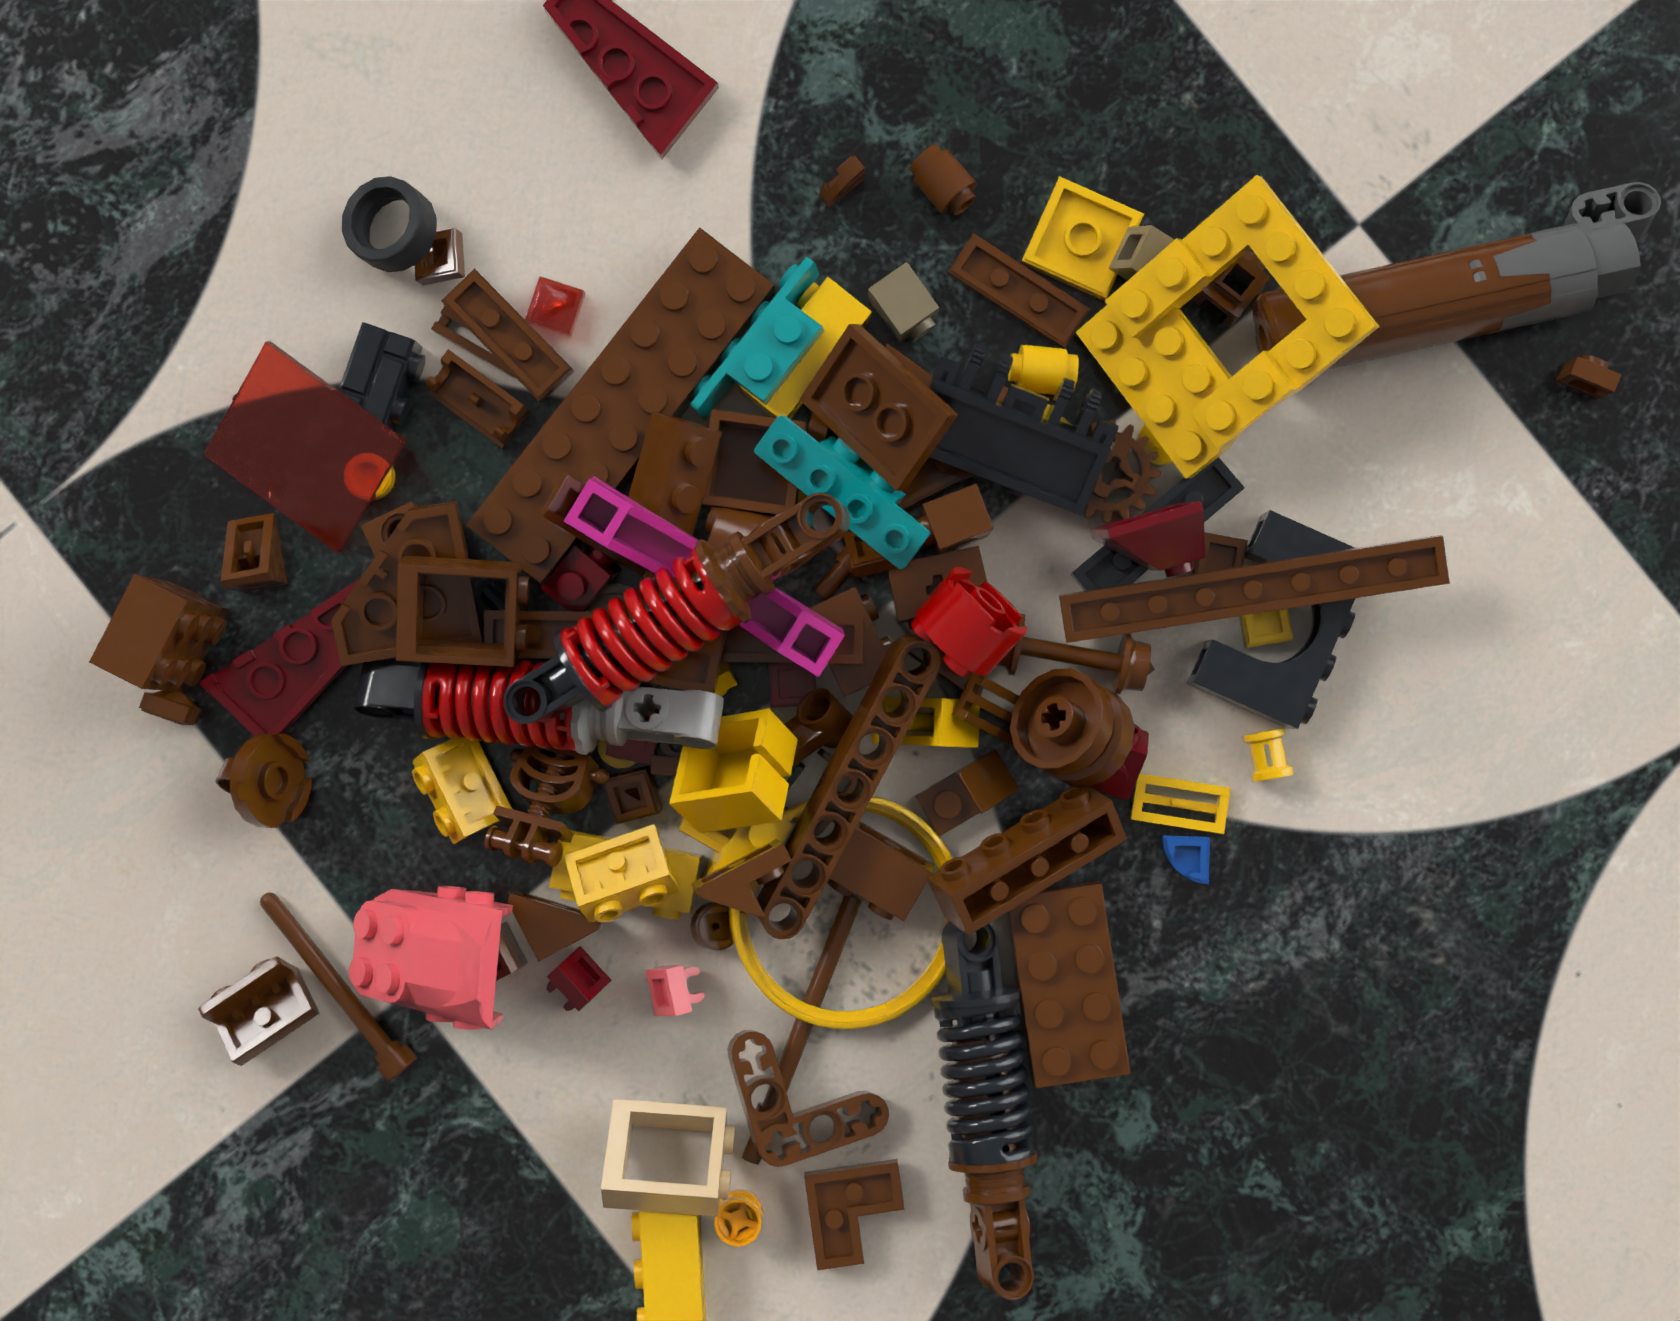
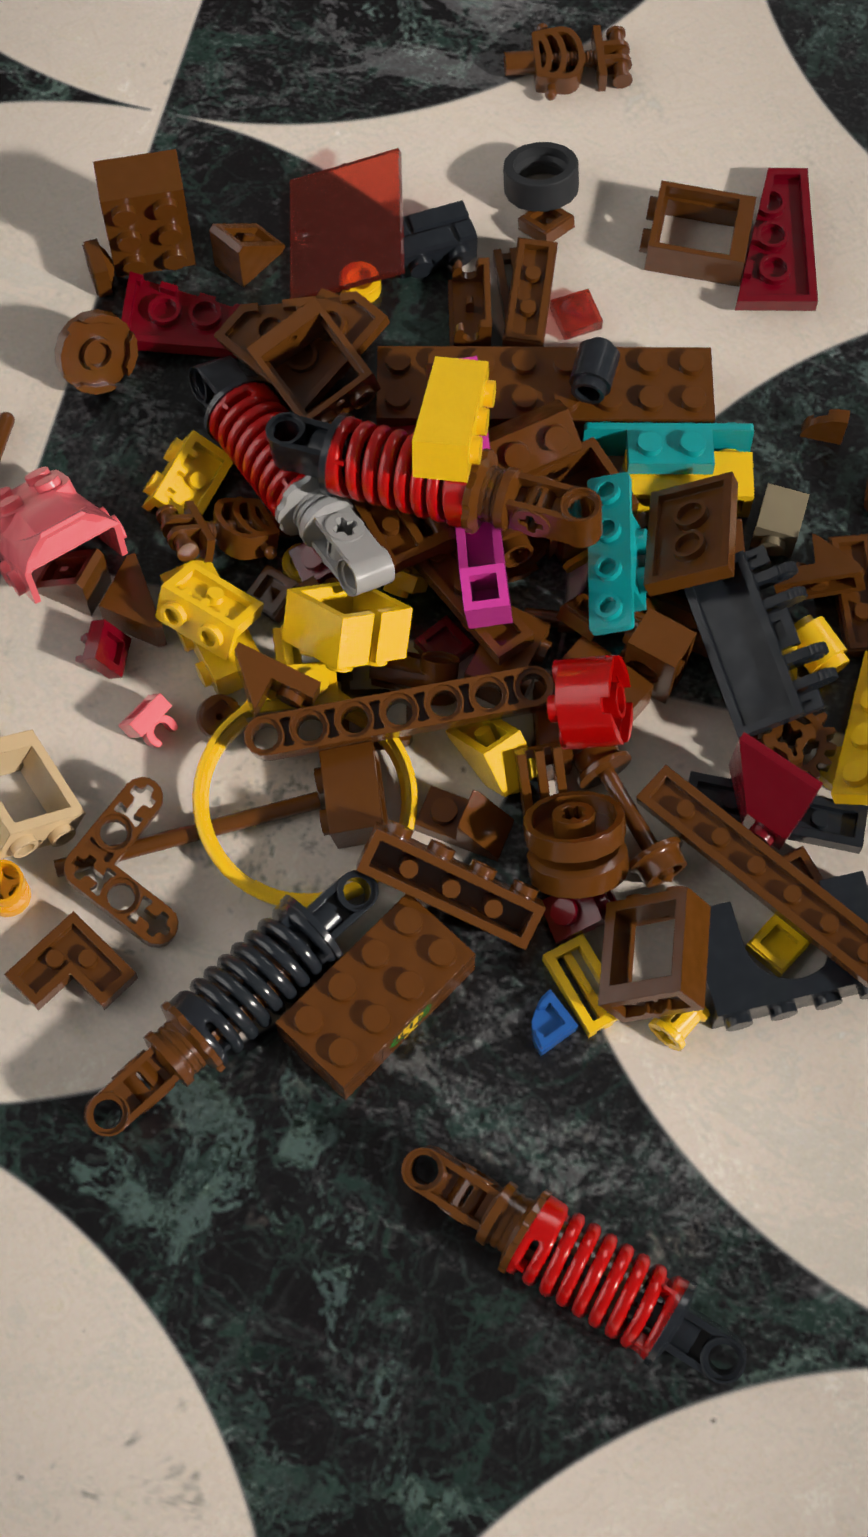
camera: 50 degrees right, 20 degrees down
(247, 123) = (550, 52): none -> reddish brown torso
(540, 93) = (704, 206): none -> reddish brown window
(653, 360) = (594, 370): none -> black brick
(654, 564) = (452, 419): none -> yellow brick
(990, 306) = (829, 575): none -> reddish brown slope
(1238, 715) = (664, 995): none -> reddish brown window
(1402, 994) = (578, 1266): none -> piece

